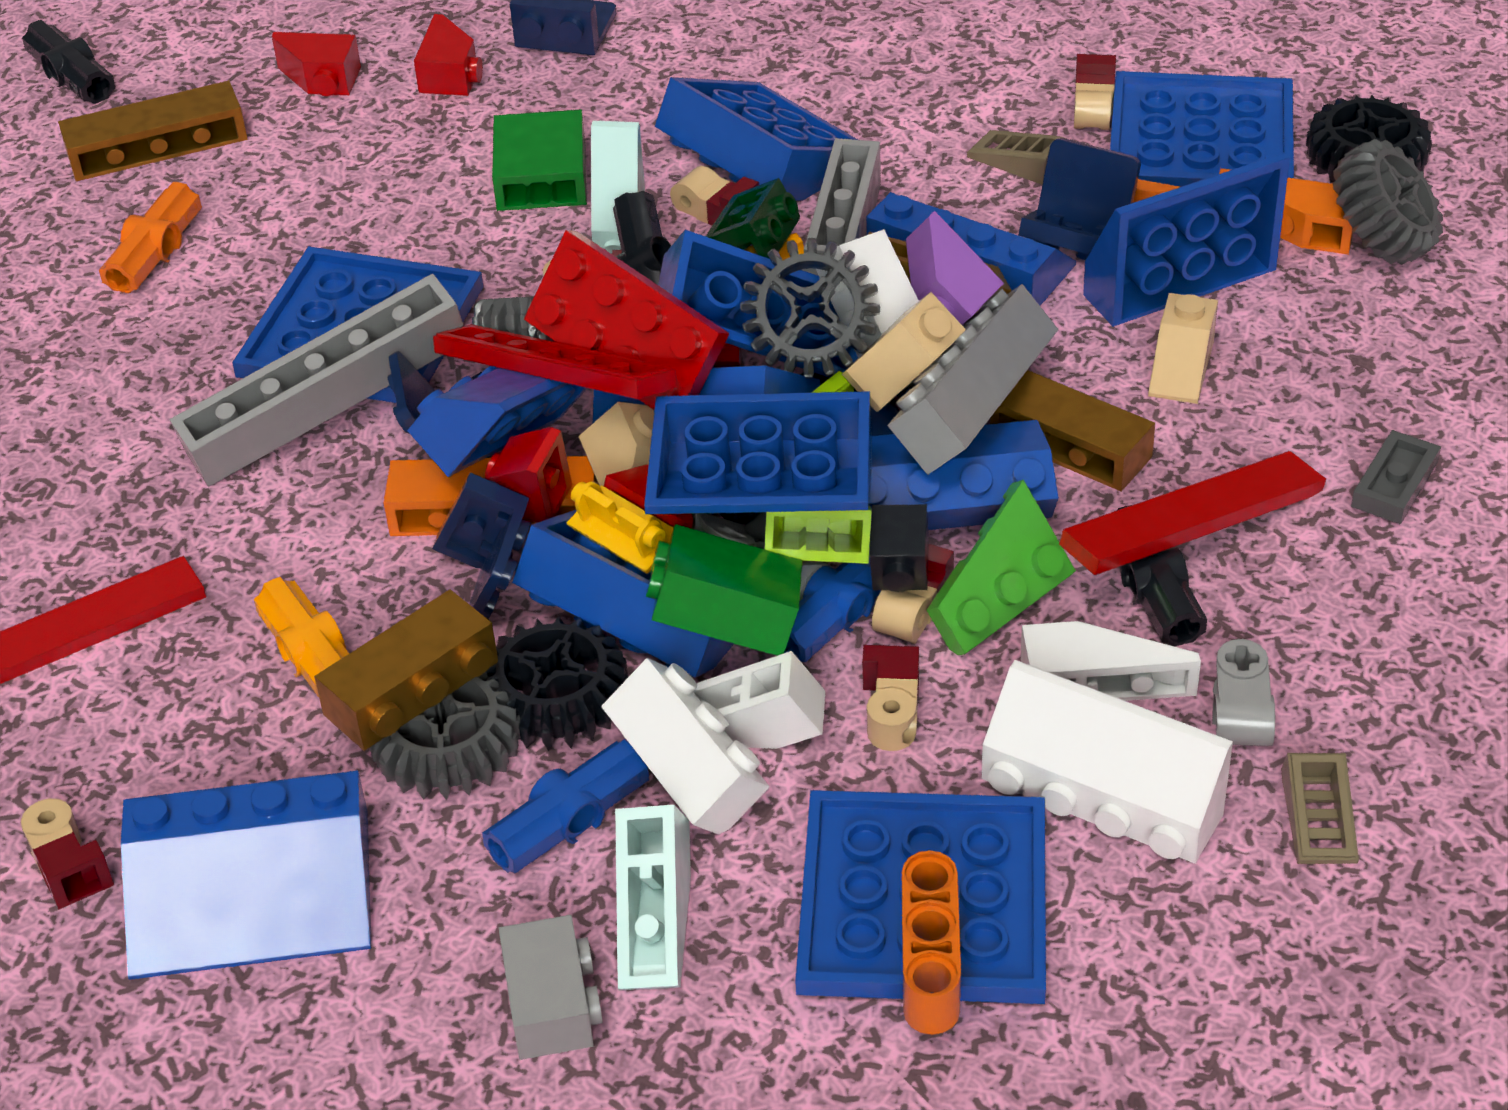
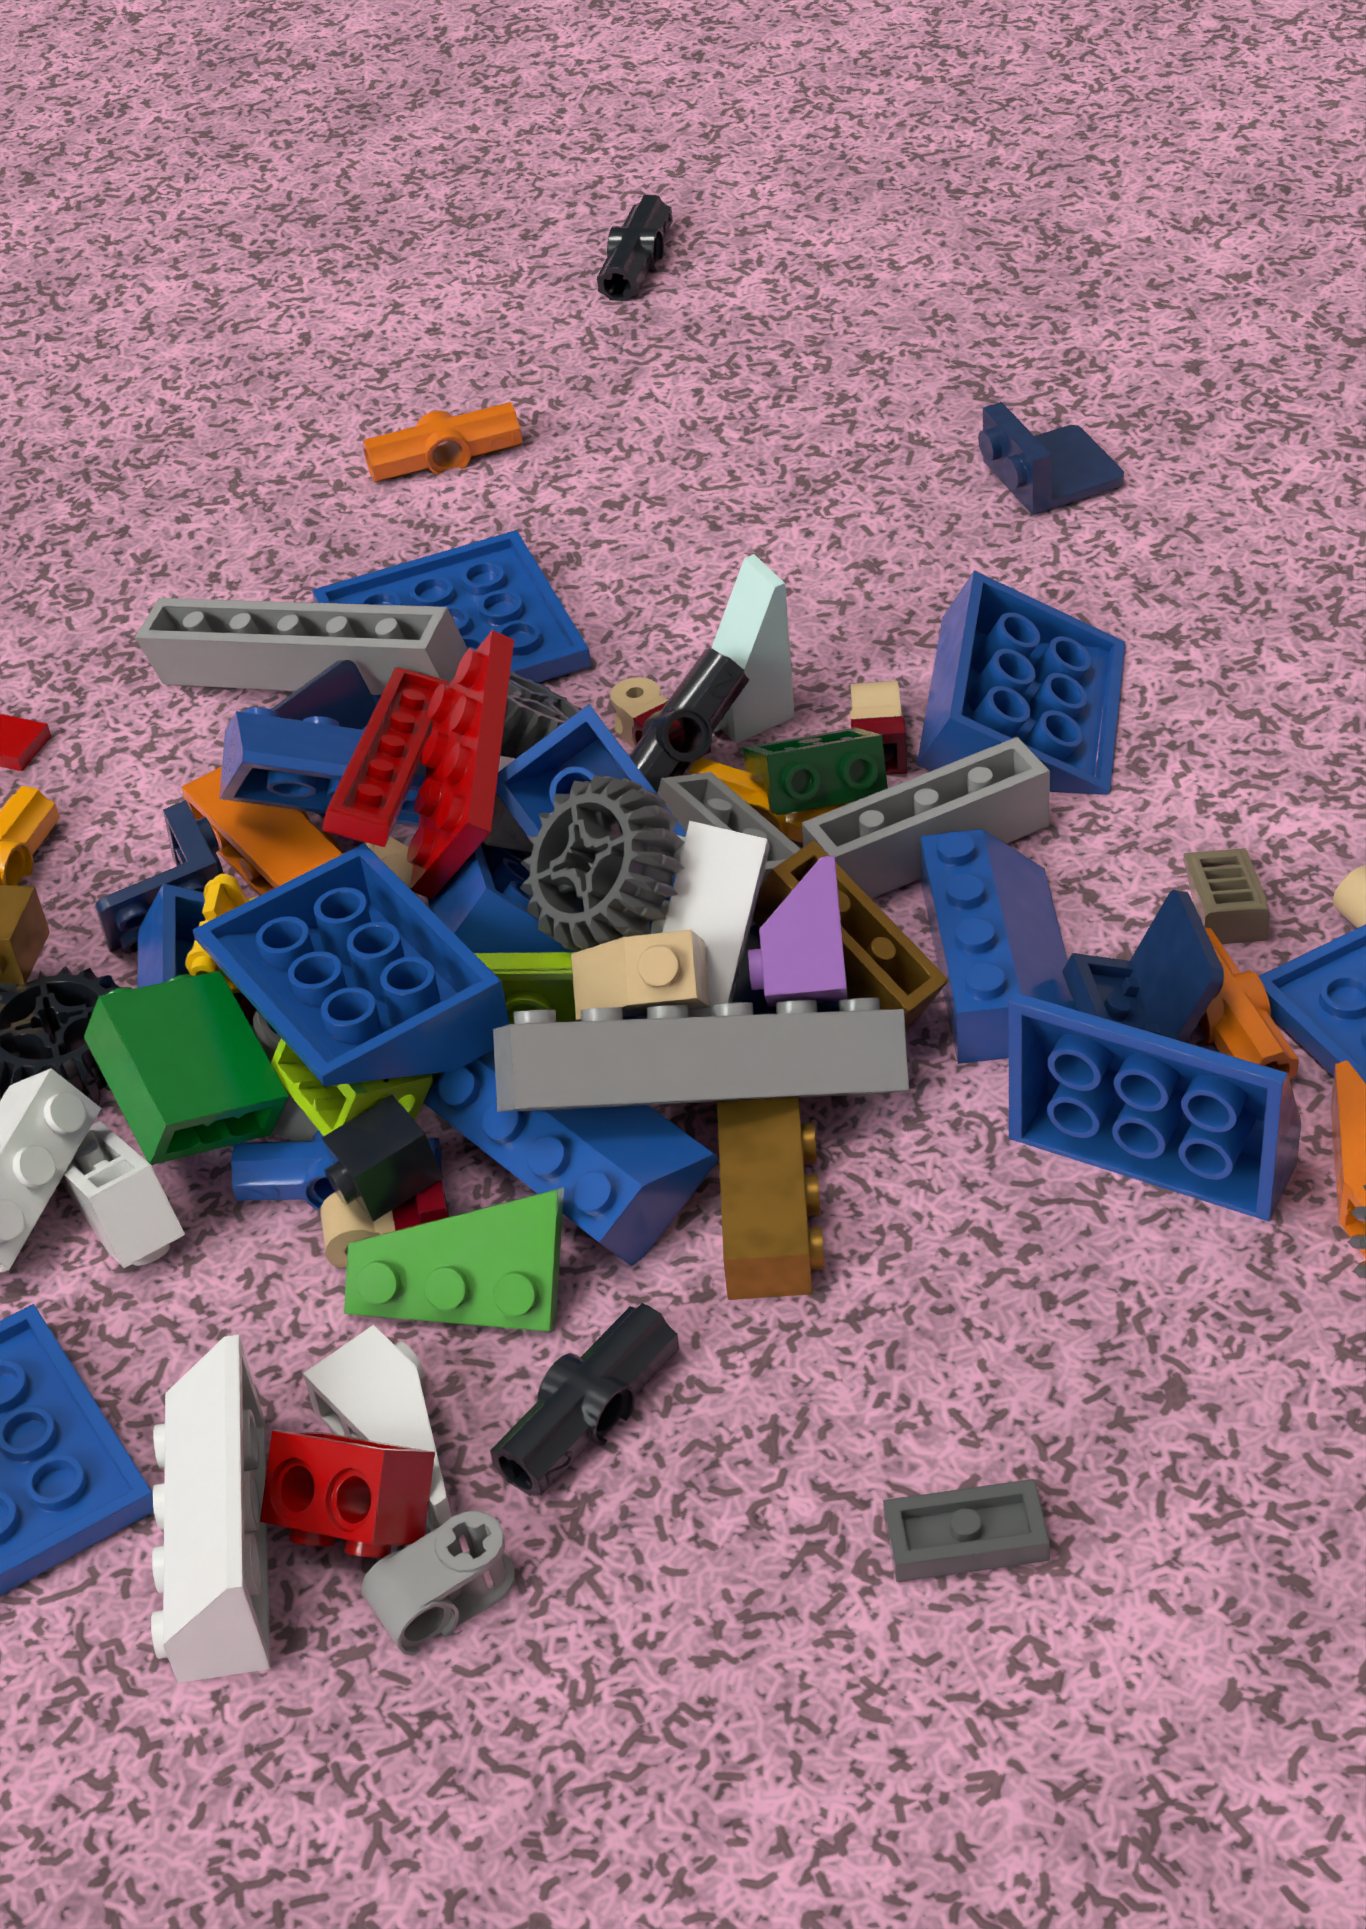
camera: 55 degrees right, 0 degrees up
(153, 130) = (588, 349): pearl gold brick -> none
(318, 61) = (798, 370): red slope -> none
(447, 60) = (891, 432): red slope -> none
(536, 468) = (251, 846): red slope -> none
(539, 160) = (825, 573): green brick -> none
(894, 705) = (223, 1291): tan leg -> none
(1146, 675) = (347, 1491): none -> red brick
(1183, 347) = (1000, 1213): tan slope -> none
(1191, 512) = (696, 1371): red tile -> none
(1320, 769) = (365, 1755): dark tan slope -> none

